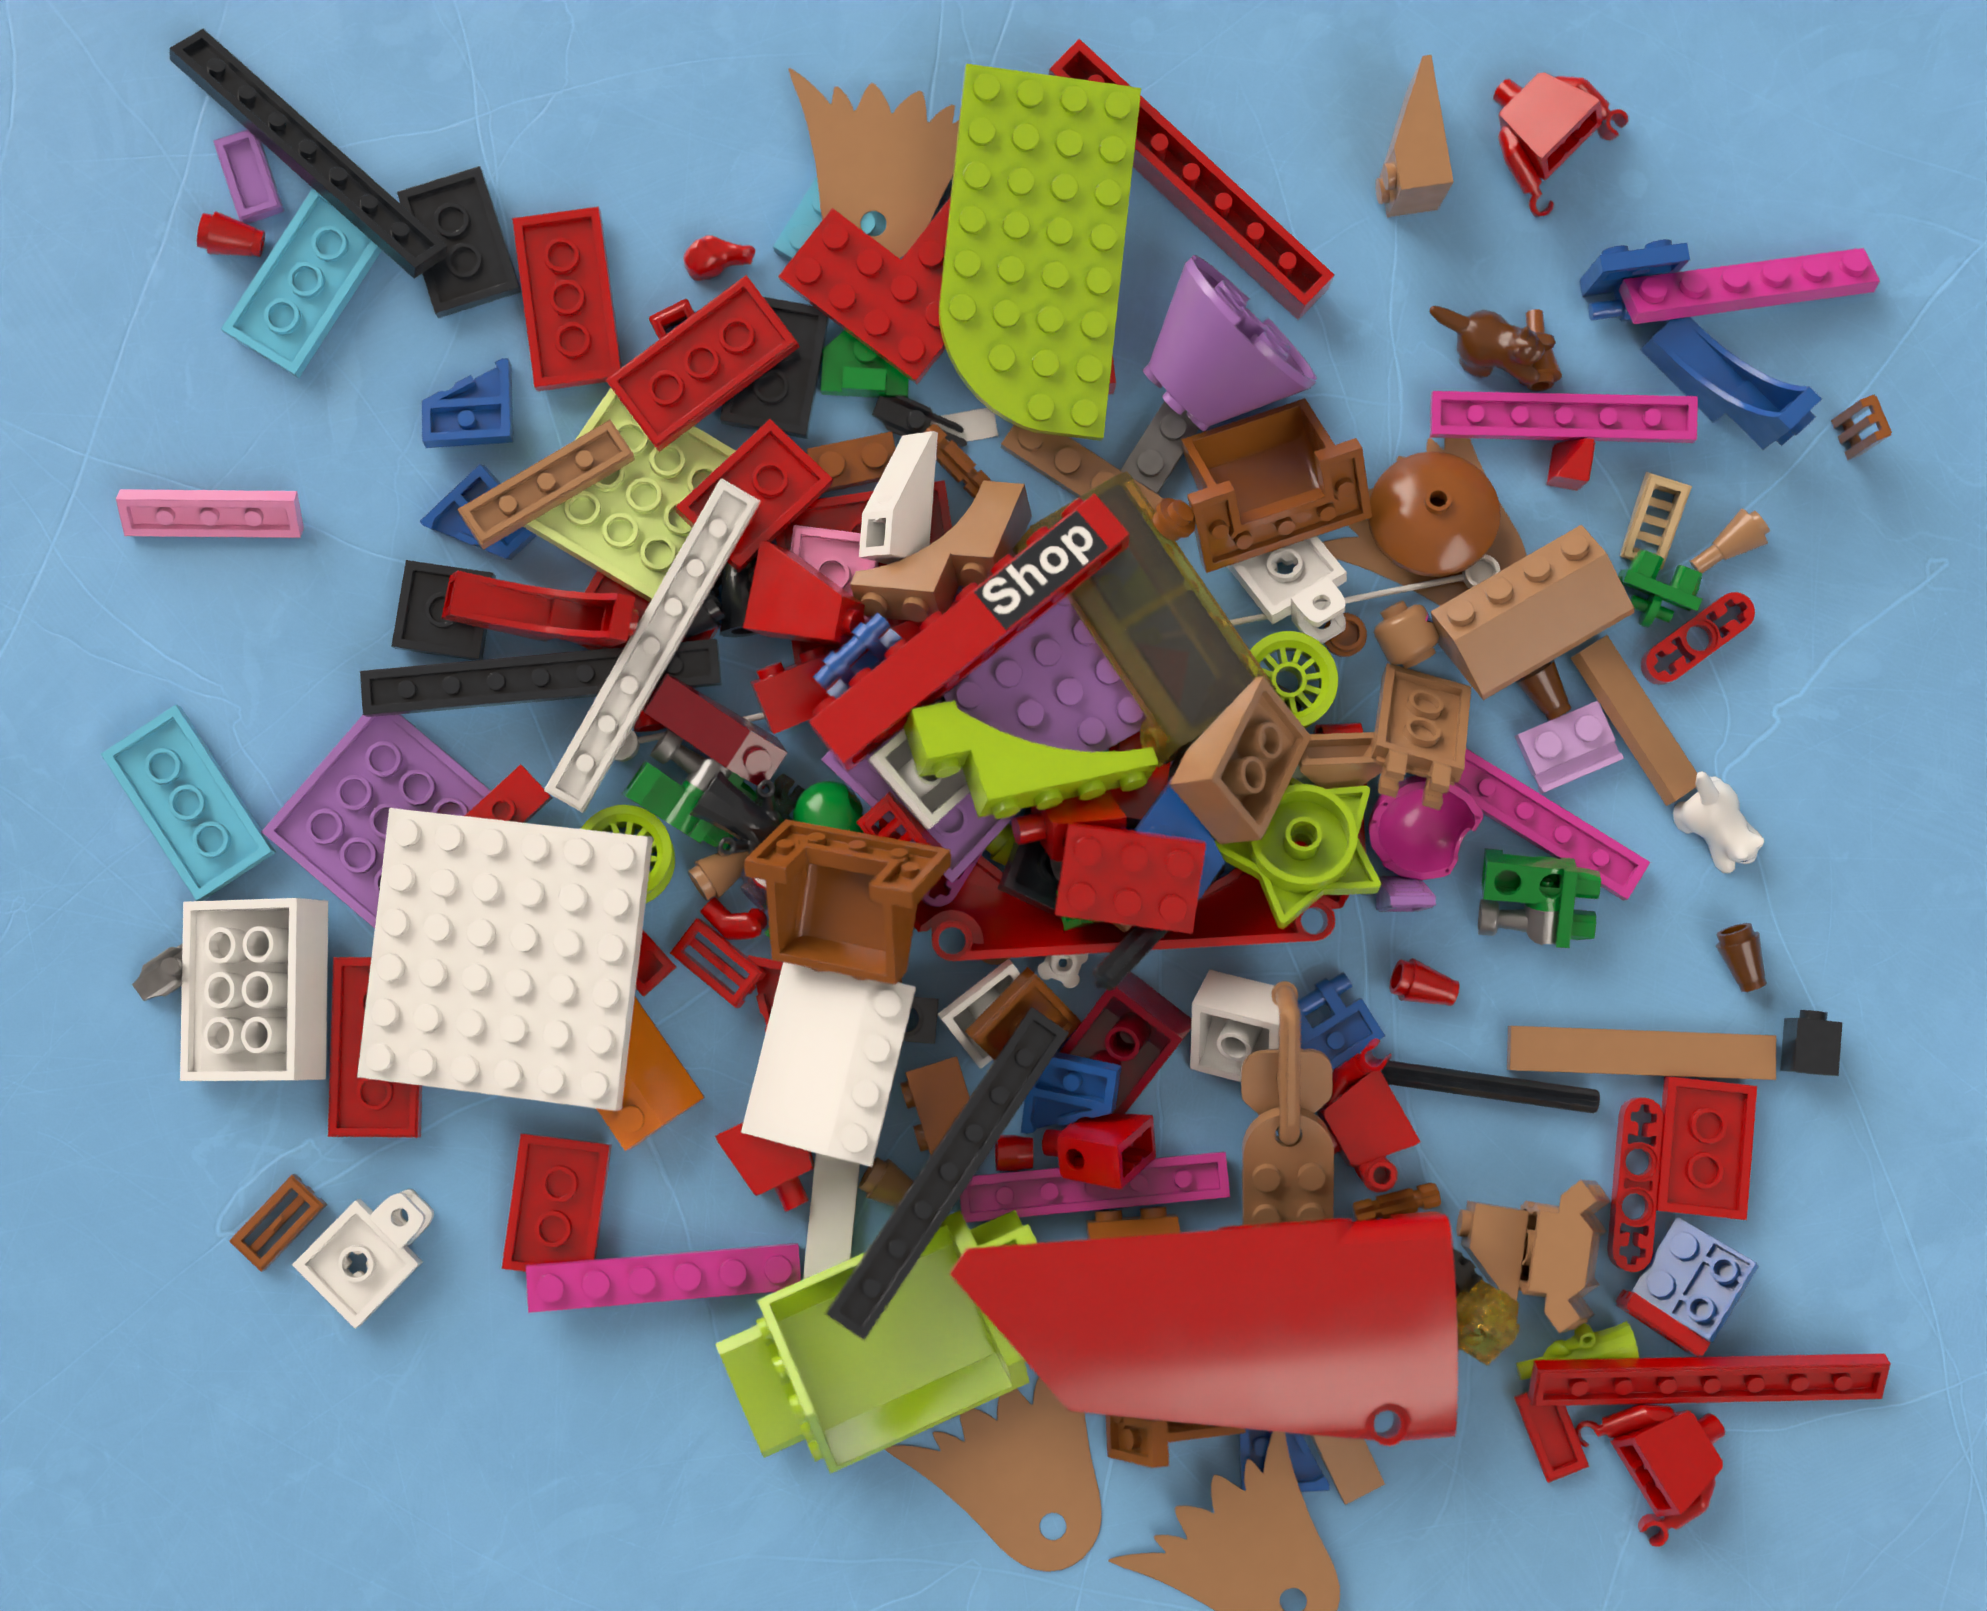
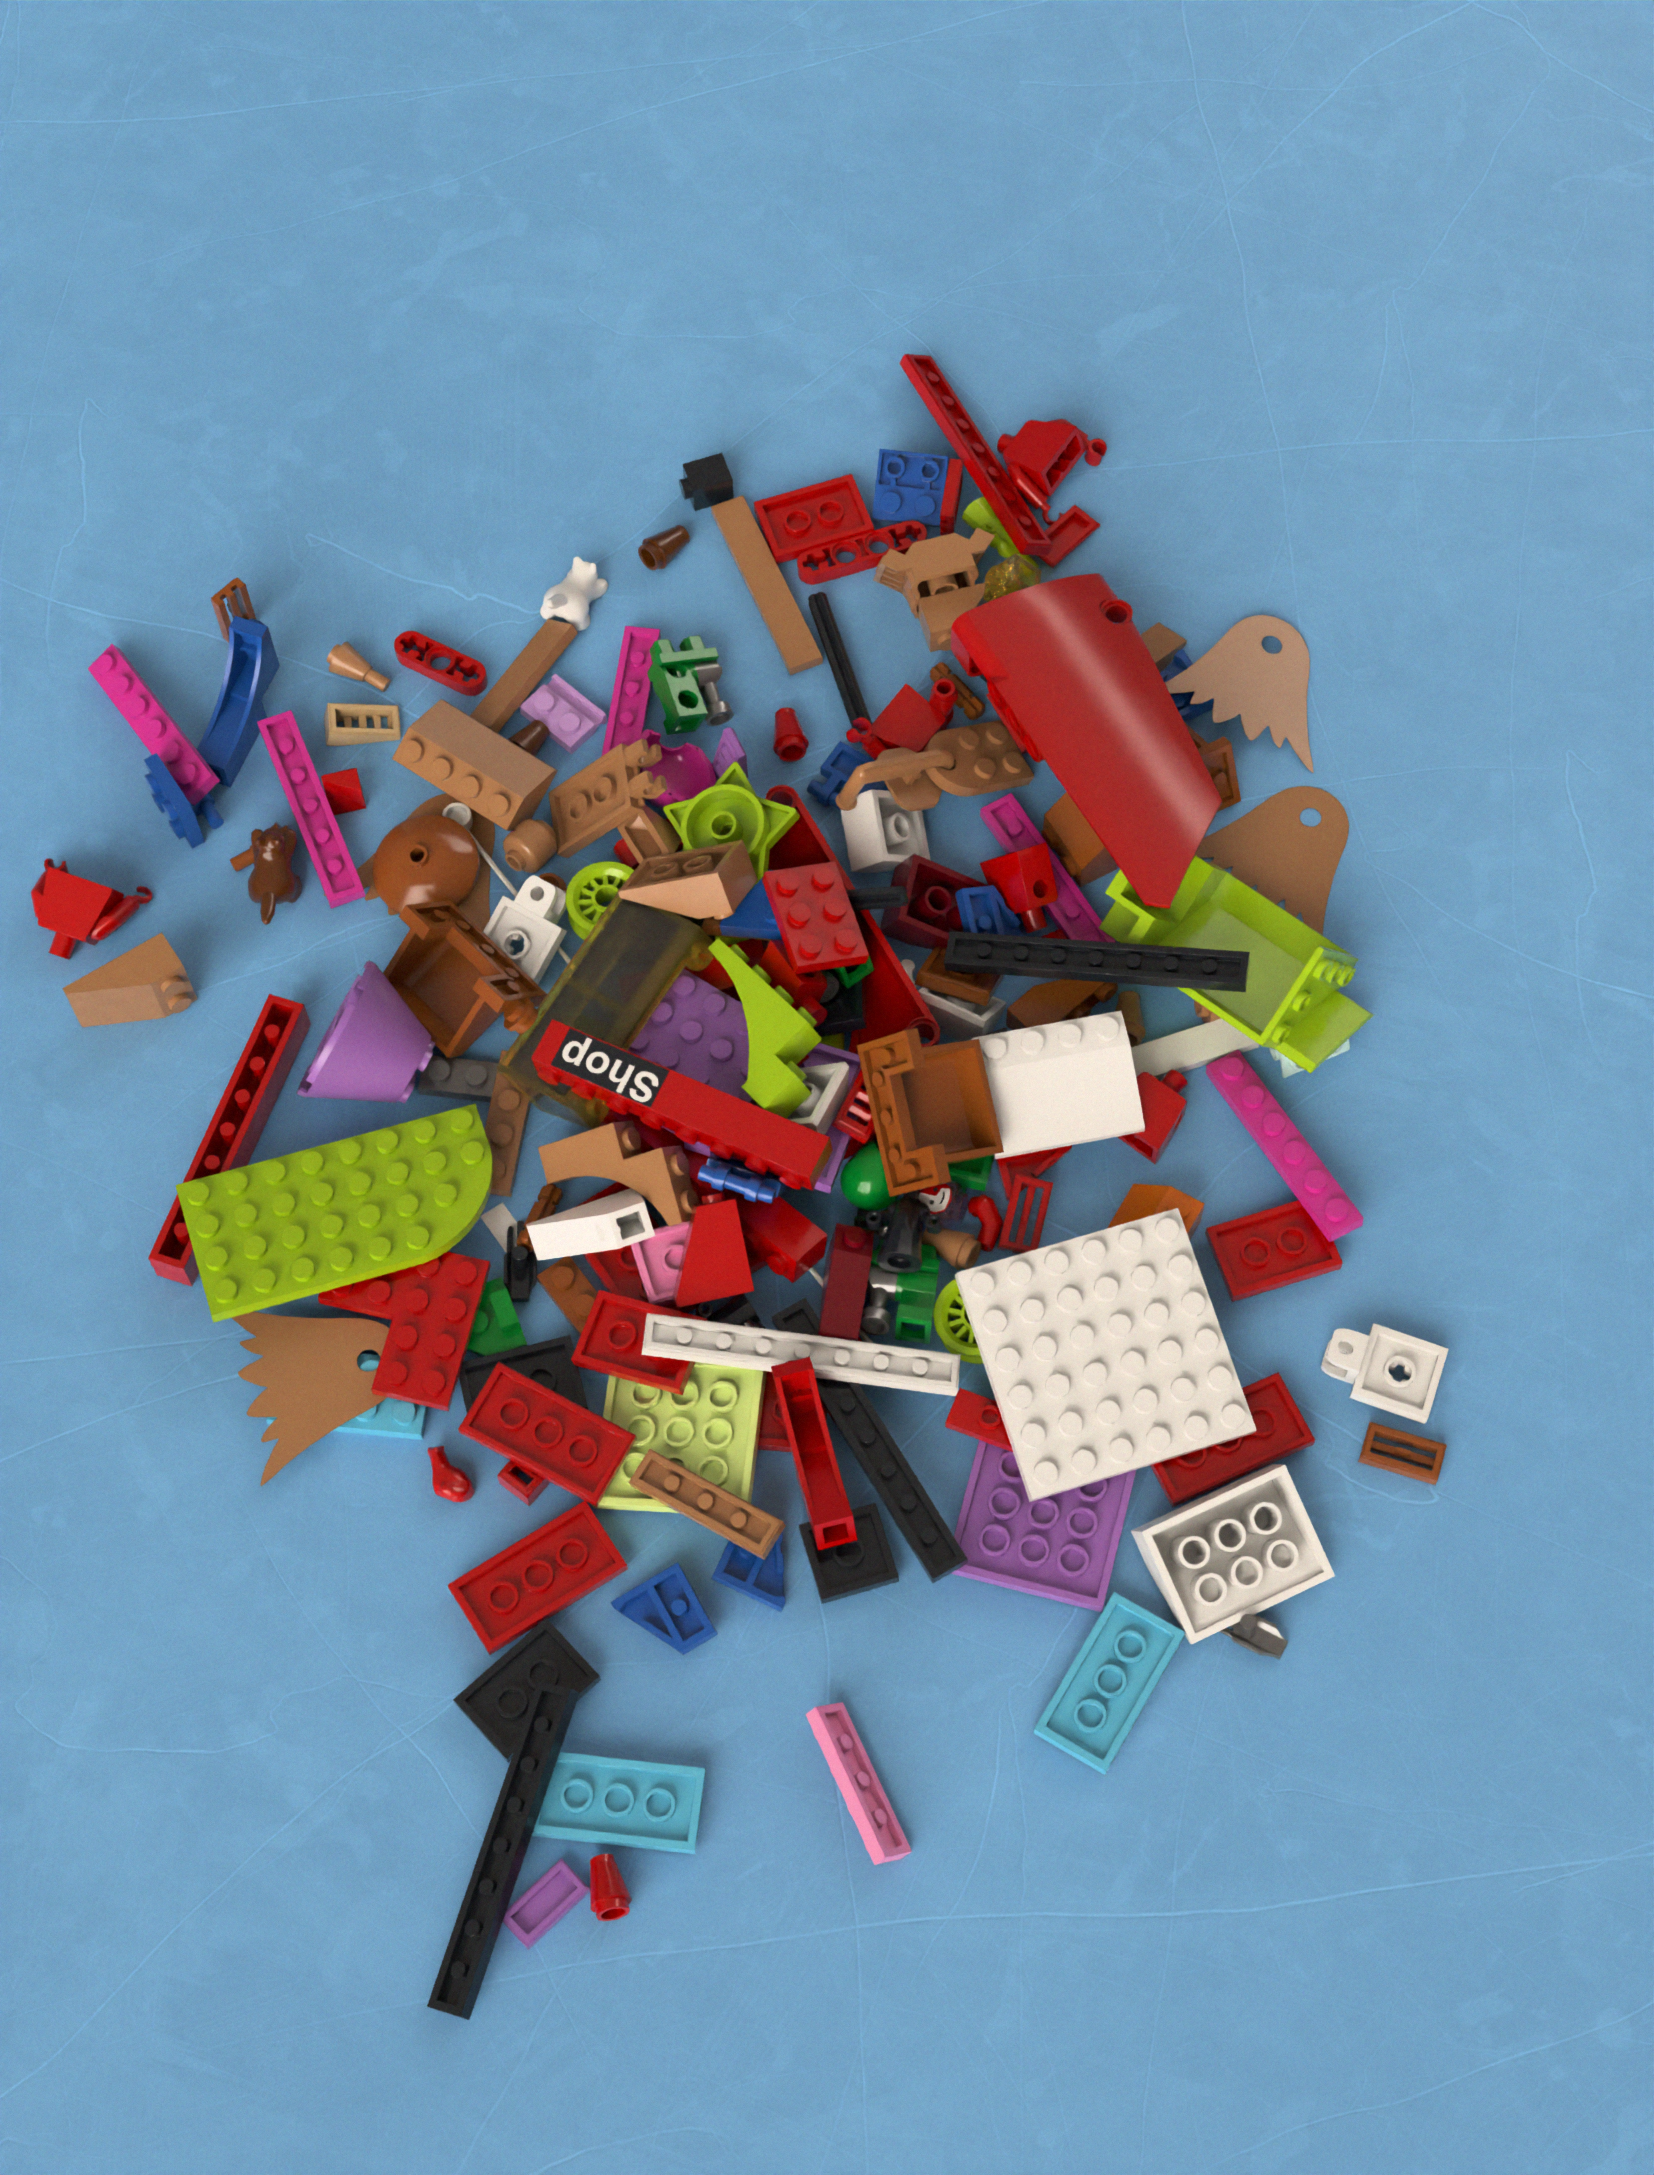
camera: 105 degrees left, 20 degrees down
(1680, 591) = (411, 683): green hips -> none

